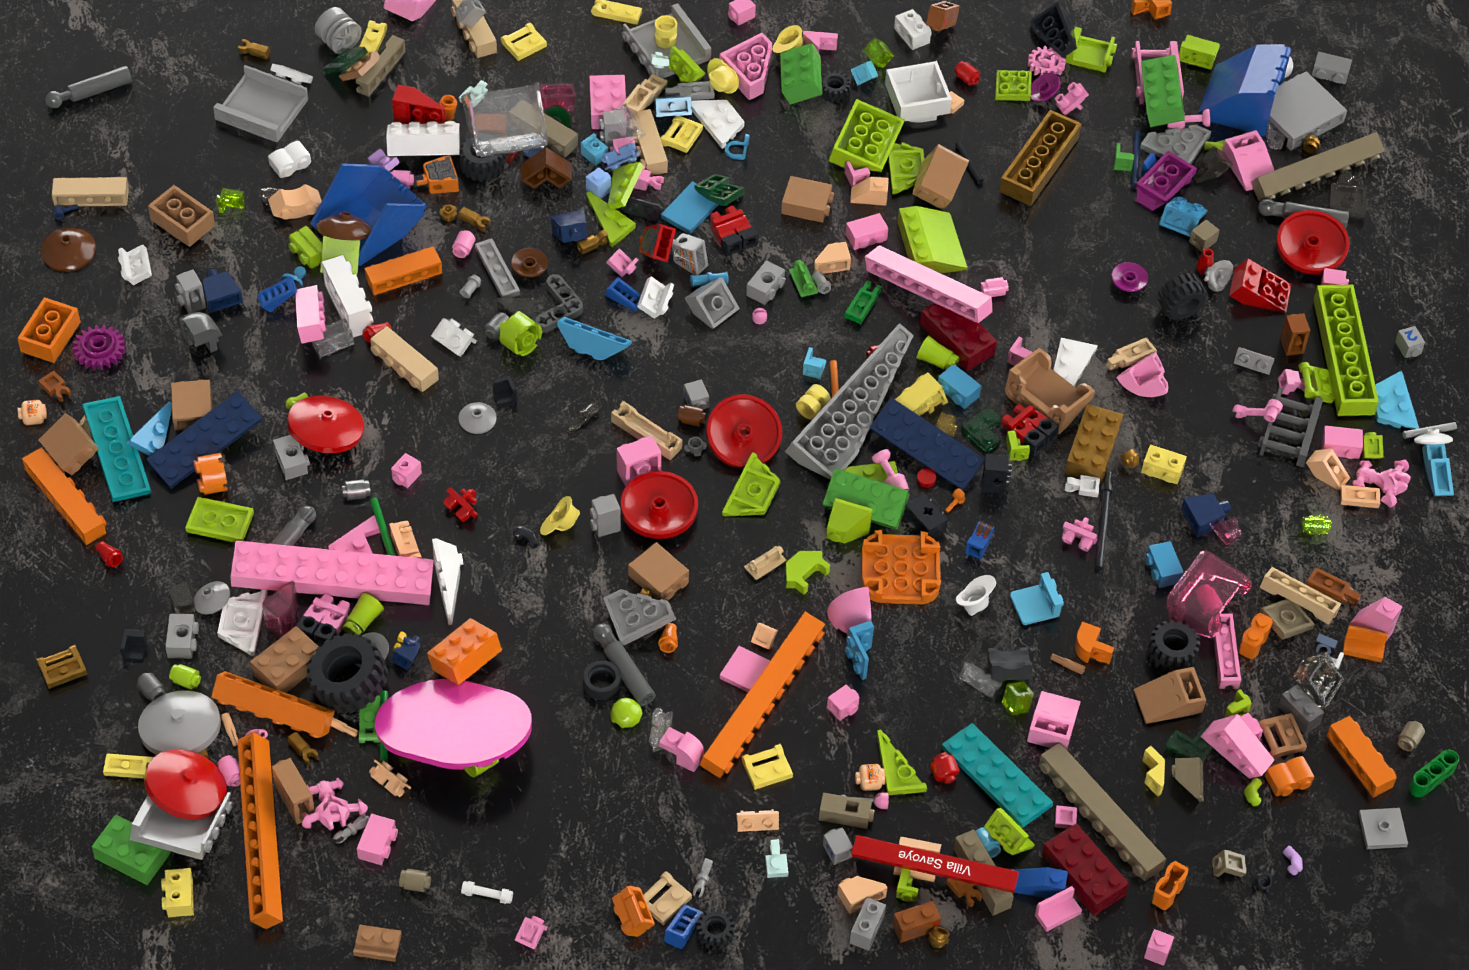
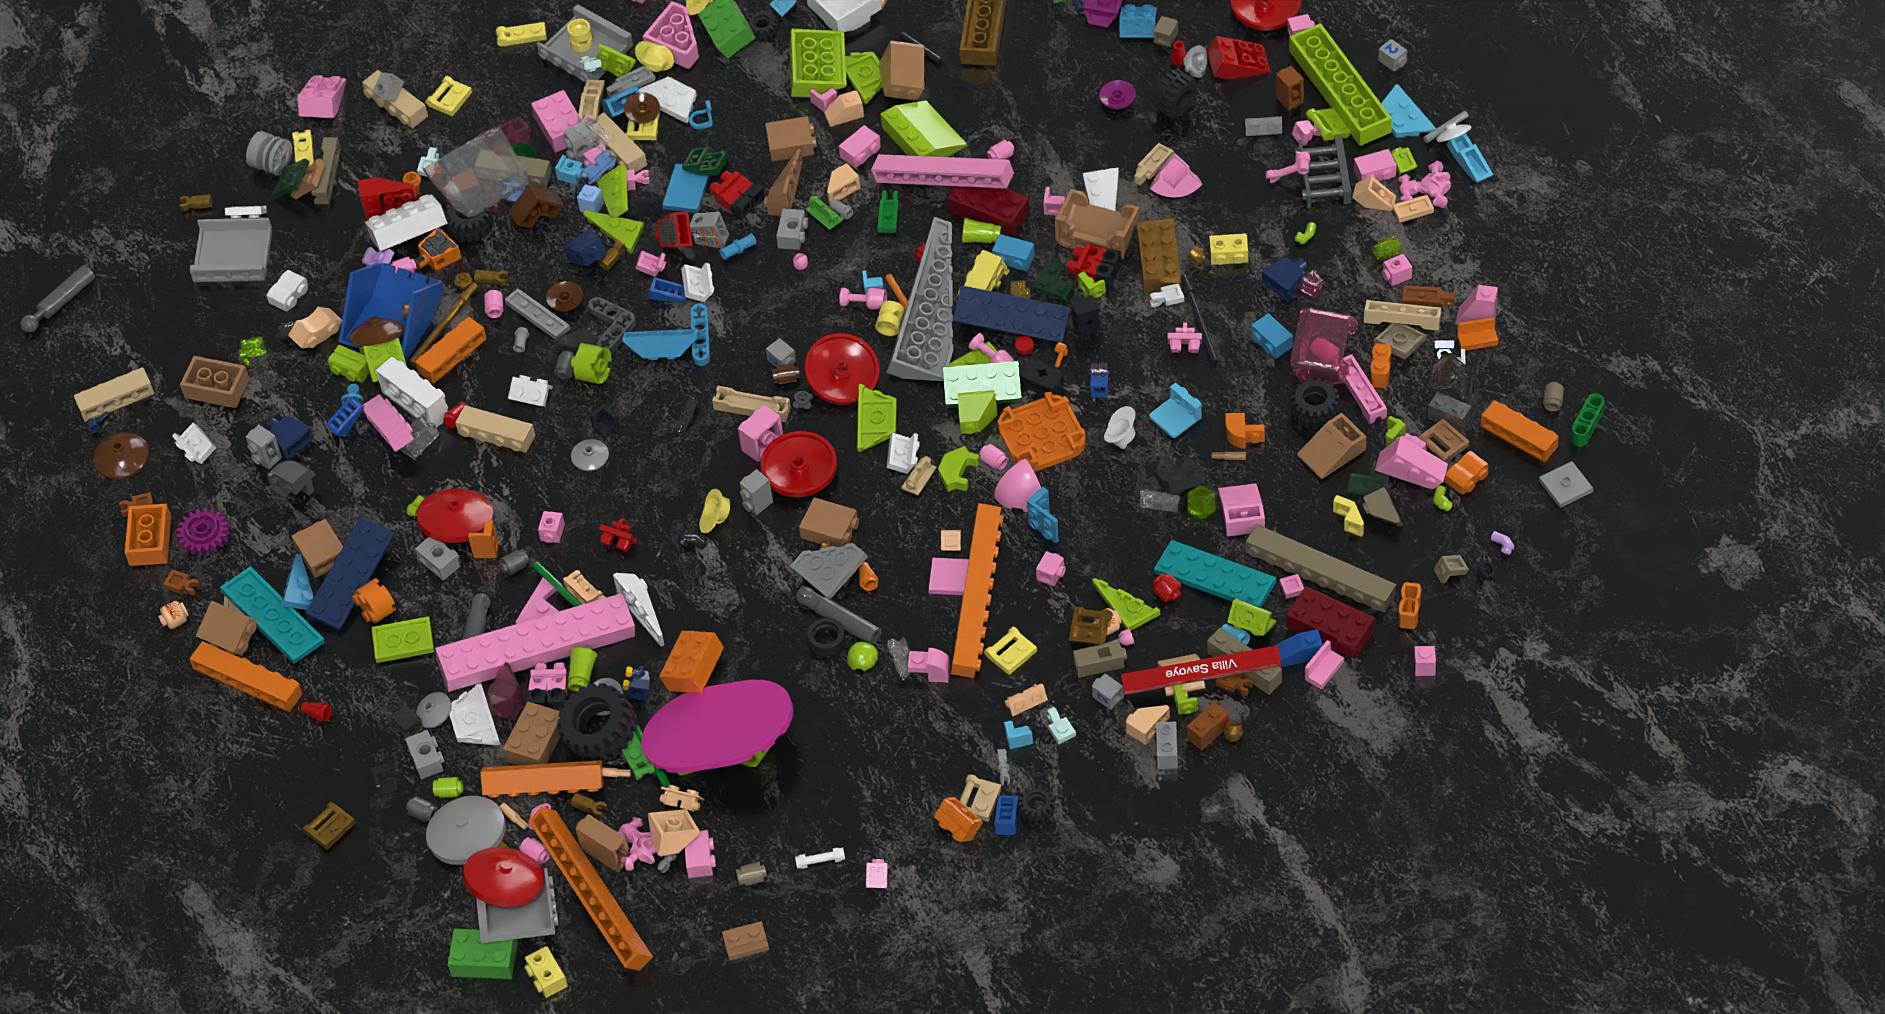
camera: 15 degrees left, 0 degrees up
(59, 296) = (142, 499): none -> dark orange plate
(126, 765) = (440, 884): light yellow plate -> none
(339, 461) = (484, 544): none -> orange panel
(360, 806) = (671, 831): none -> light nougat slope
(439, 229) = (463, 299): none -> pearl gold bar
(635, 347) = (703, 334): none -> dark azure beam
(686, 112) = (639, 102): none -> reddish brown dish
(712, 303) = (752, 266): light grey slope -> none
(732, 853) = (1019, 736): none -> medium azure panel
(760, 533) = (902, 452): none -> white bracket
(780, 241) = (783, 190): none -> medium nougat wedge
(807, 376) = (873, 297): none -> bright pink piece
(844, 573) = (994, 457): none -> bright pink brick
(848, 780) = (1089, 632): none -> pearl gold plate
(1248, 480) = (1309, 233): none -> lime arm
(1316, 549) = (1397, 270): none -> bright pink brick

